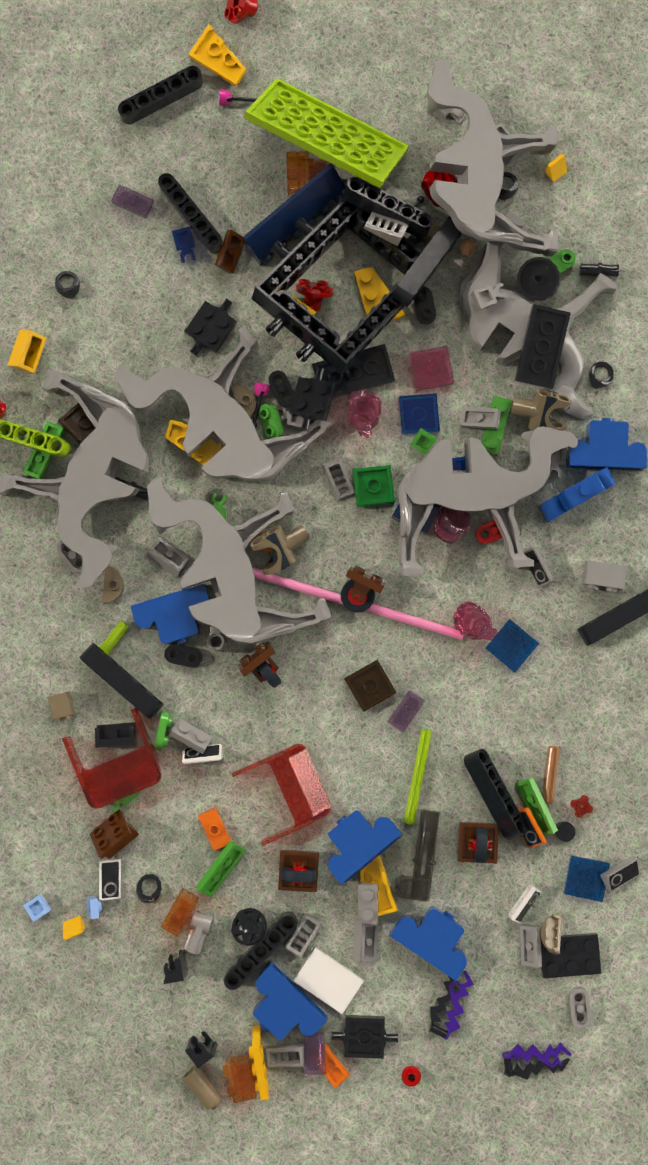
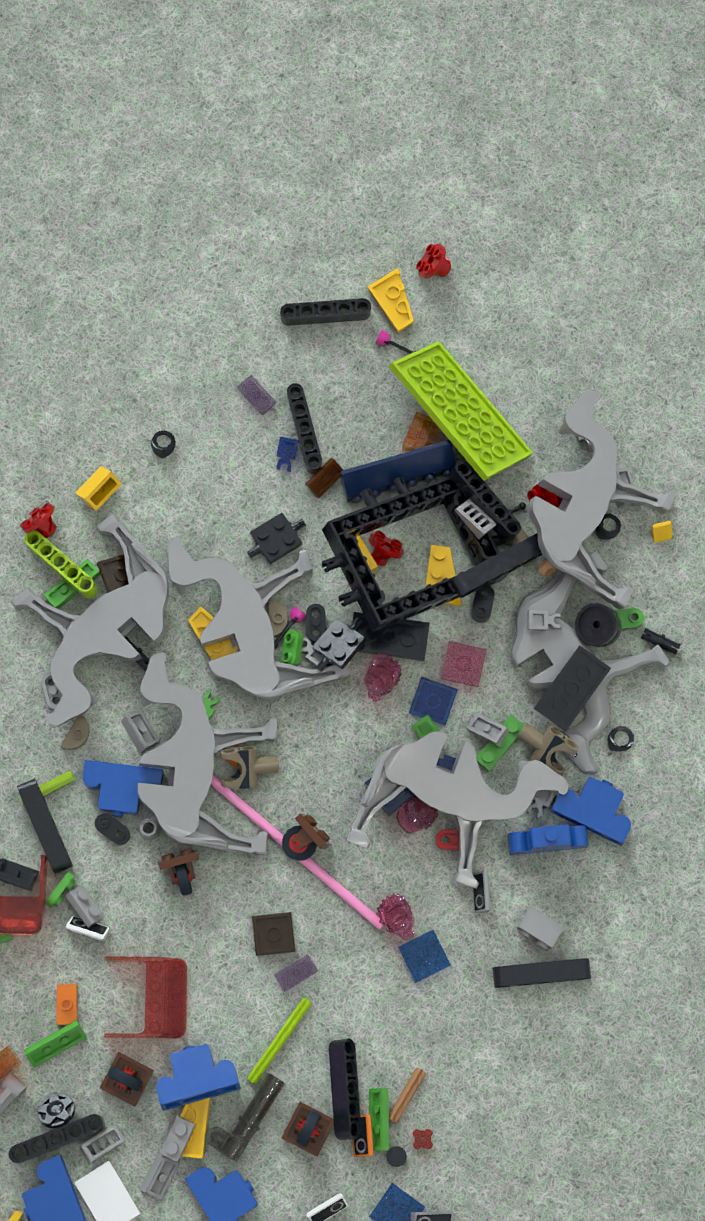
camera: 20 degrees right, 10 degrees down
(331, 463) = (332, 711): light grey slope -> none
(373, 486) = (360, 749): green plate -> none

